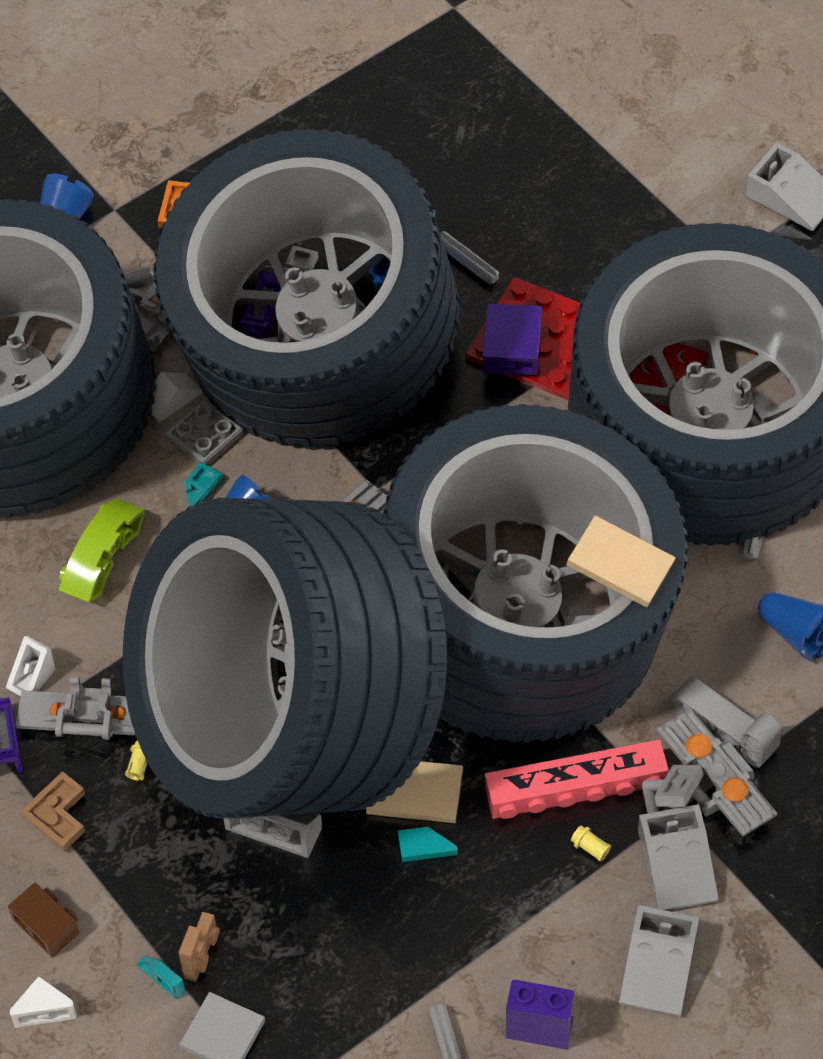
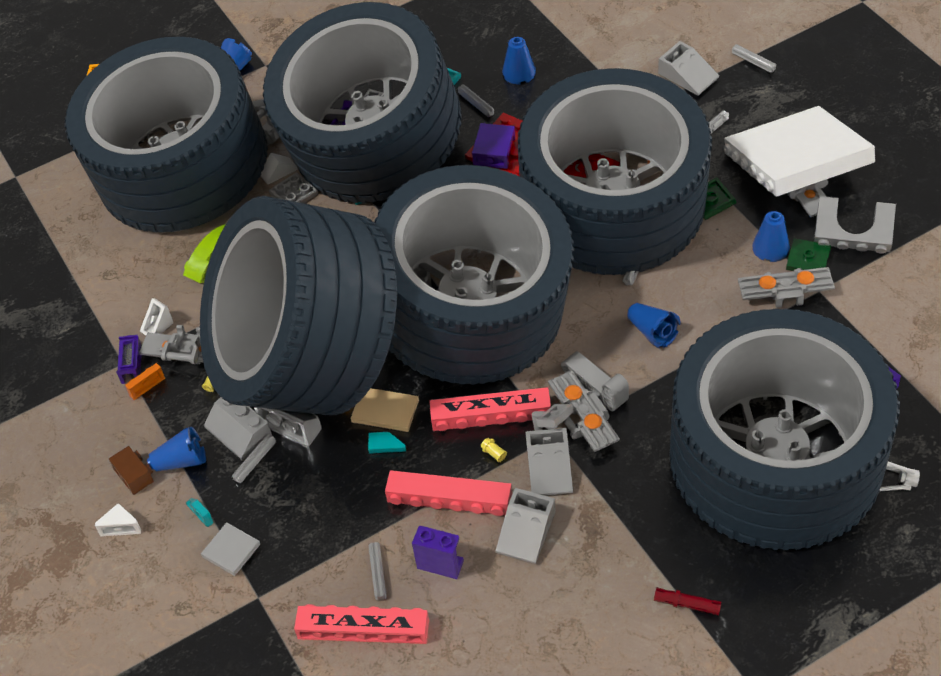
camera: 10 degrees right, 5 degrees down
(34, 773) = (145, 381): none -> orange plate
(49, 811) = (150, 404): medium nougat plate -> none
(112, 886) = (178, 452): none -> blue cone
(193, 841) = (236, 427): none -> light grey slope
(196, 945) = (222, 493): medium nougat plate -> none
(230, 882) = (254, 458): none -> light grey axle
(526, 191) = (518, 62): none -> blue cone
(536, 918) = (448, 493): none -> coral brick
(620, 561) = (525, 262): tan tile -> none

